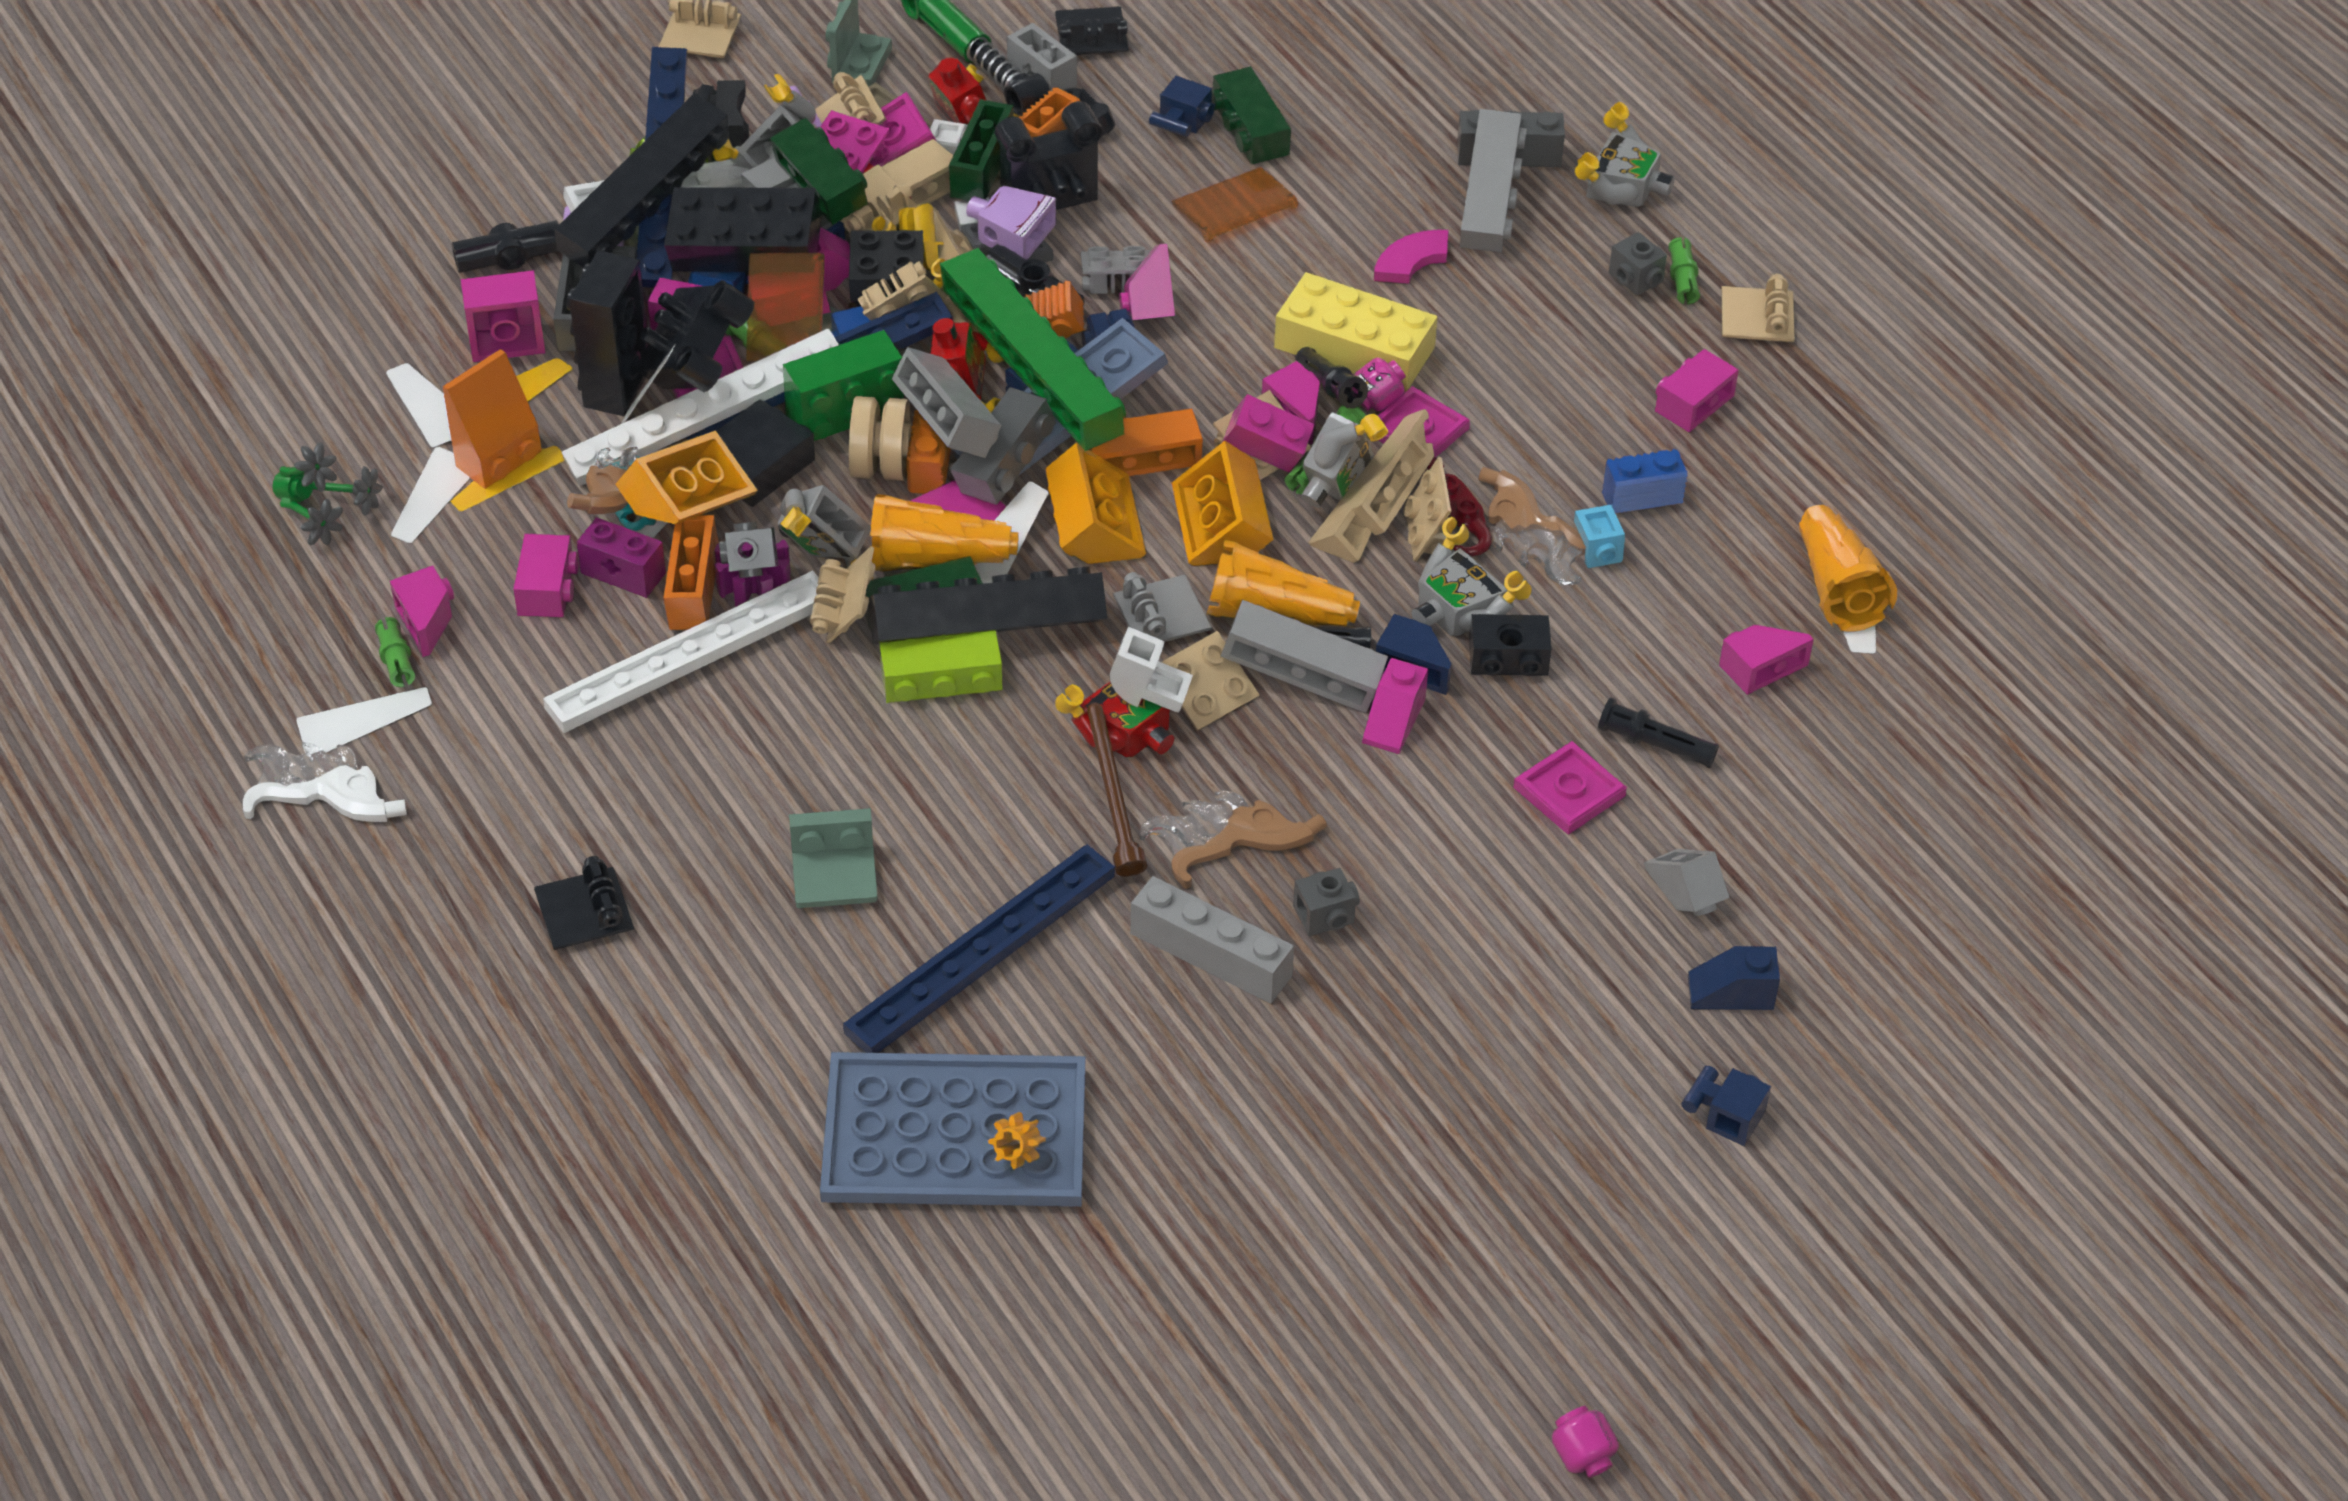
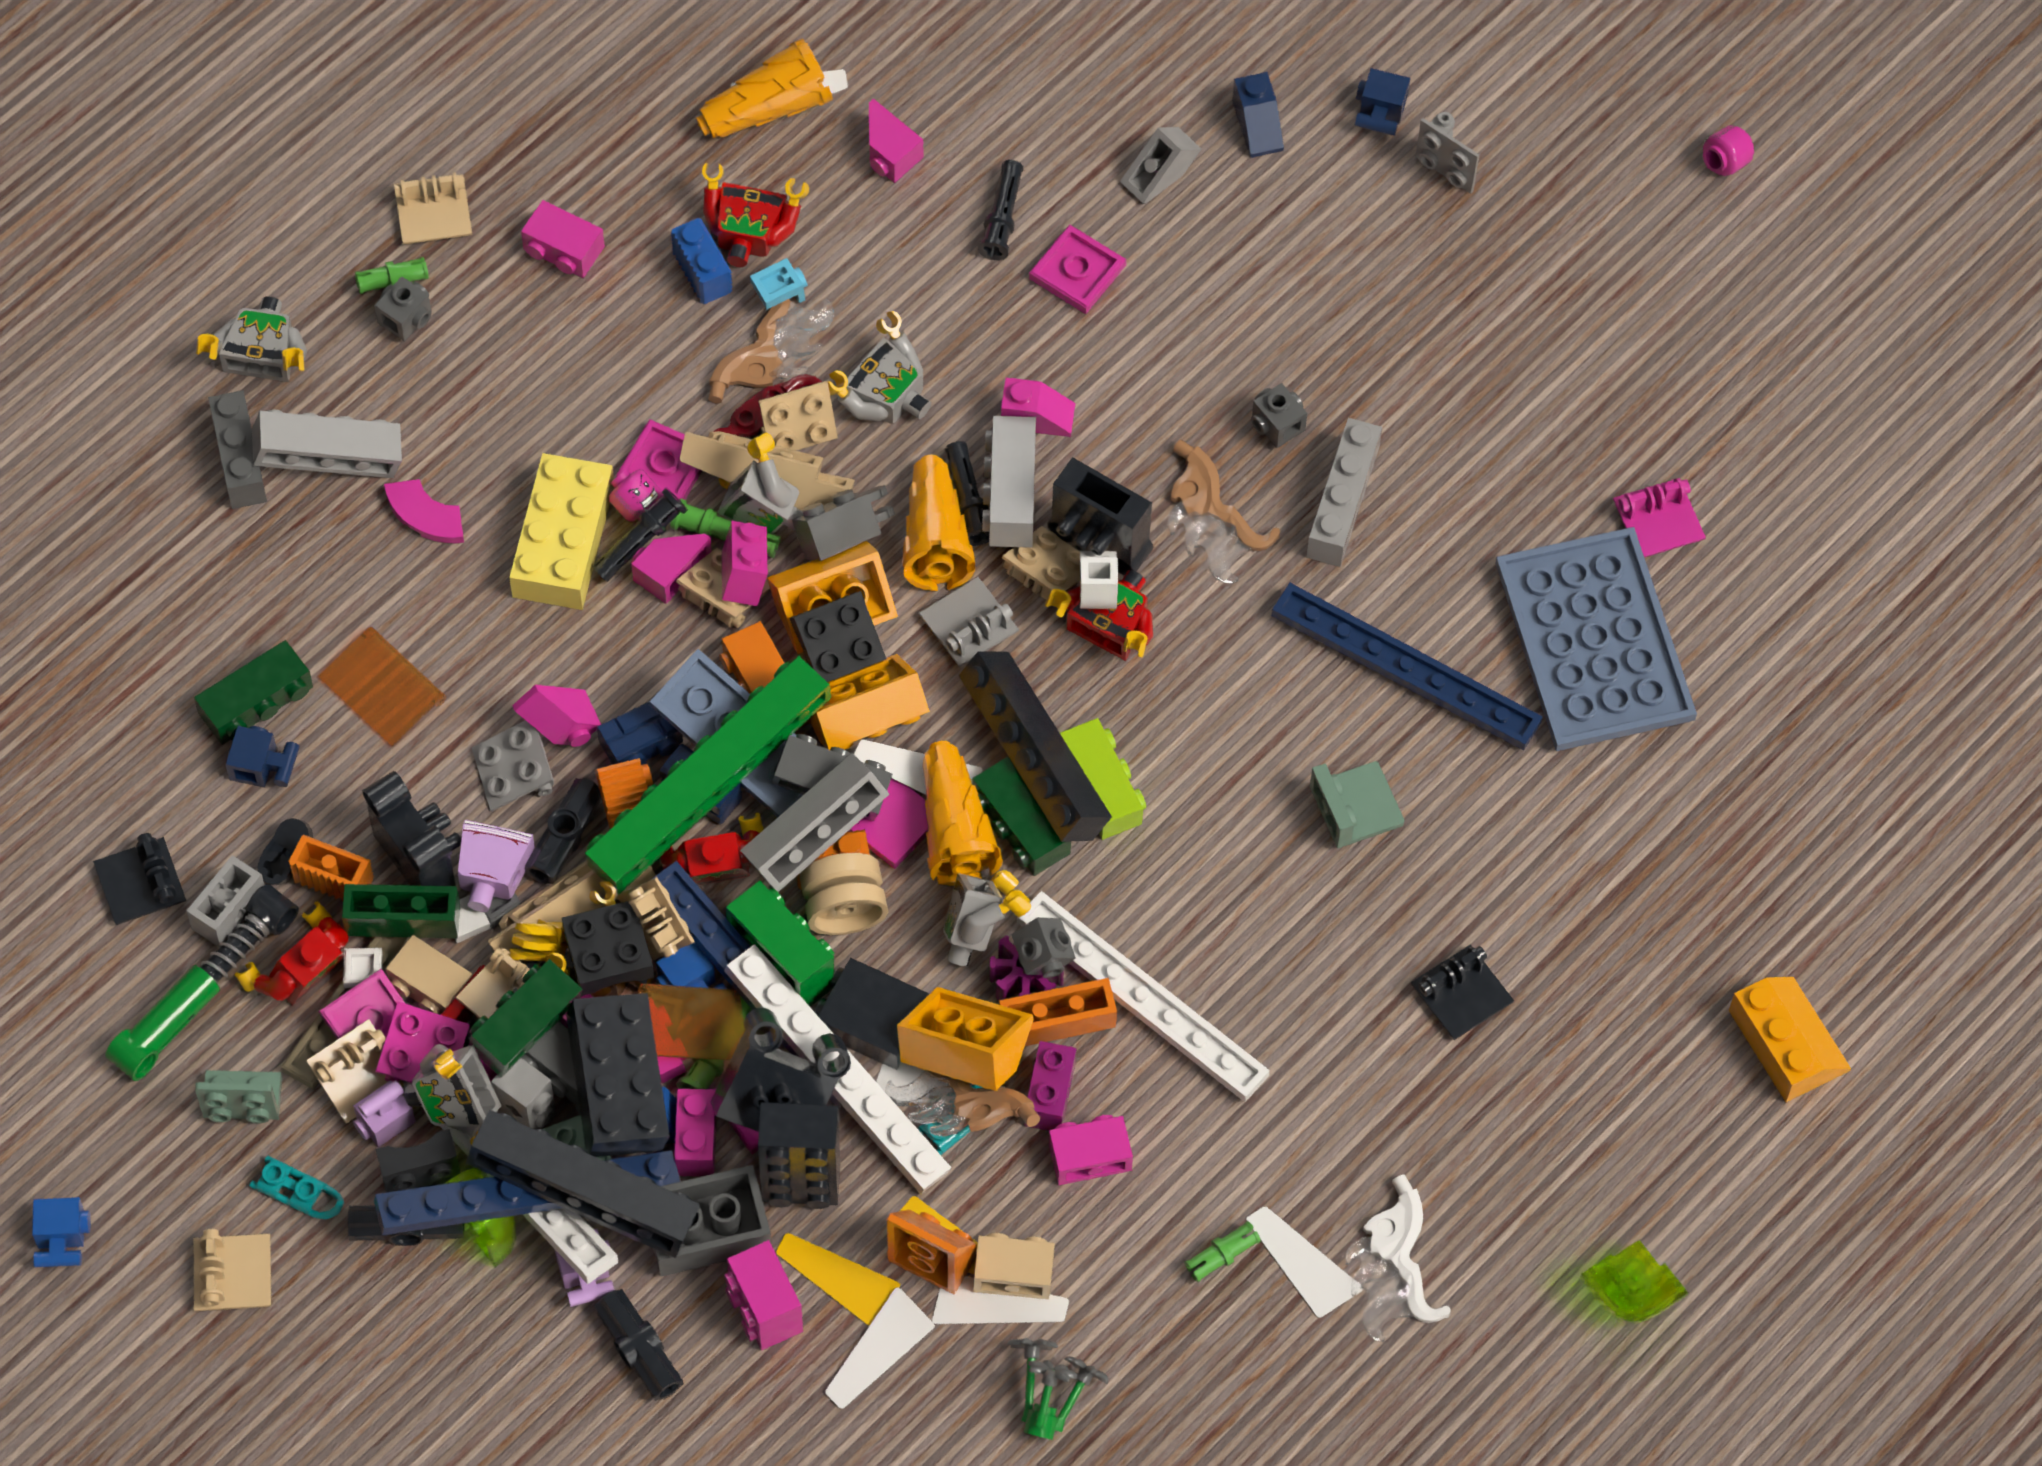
camera: 105 degrees left, 15 degrees up
(182, 950) = (1633, 1285): none -> clear neon green brick
(398, 1174) = (1787, 1036): none -> light orange slope
(423, 606) = (1163, 1242): dark pink slope -> none
(453, 497) = (1014, 1266): none -> tan brick
(645, 388) = (855, 1123): white sticker -> none
(774, 63) = (305, 1191): none -> teal piece
(841, 595) = (1056, 863): tan hinge -> none
(1012, 1130) = (1613, 571): light orange gear -> none
(1093, 1235) = (1661, 516): none -> dark pink hinge
(1128, 856) = (1271, 577): reddish brown piece -> none
(1165, 493) = (838, 637): none -> black brick
(1223, 692) = (1101, 513): none -> black piece
(1295, 517) = (841, 523): none -> dark grey hinge
(1418, 645) = (967, 407): dark blue slope -> none
(1510, 645) = (933, 315): black brick -> none
(1640, 1126) = (1445, 154): none -> light grey hinge
(1691, 523) = (749, 218): none -> red torso

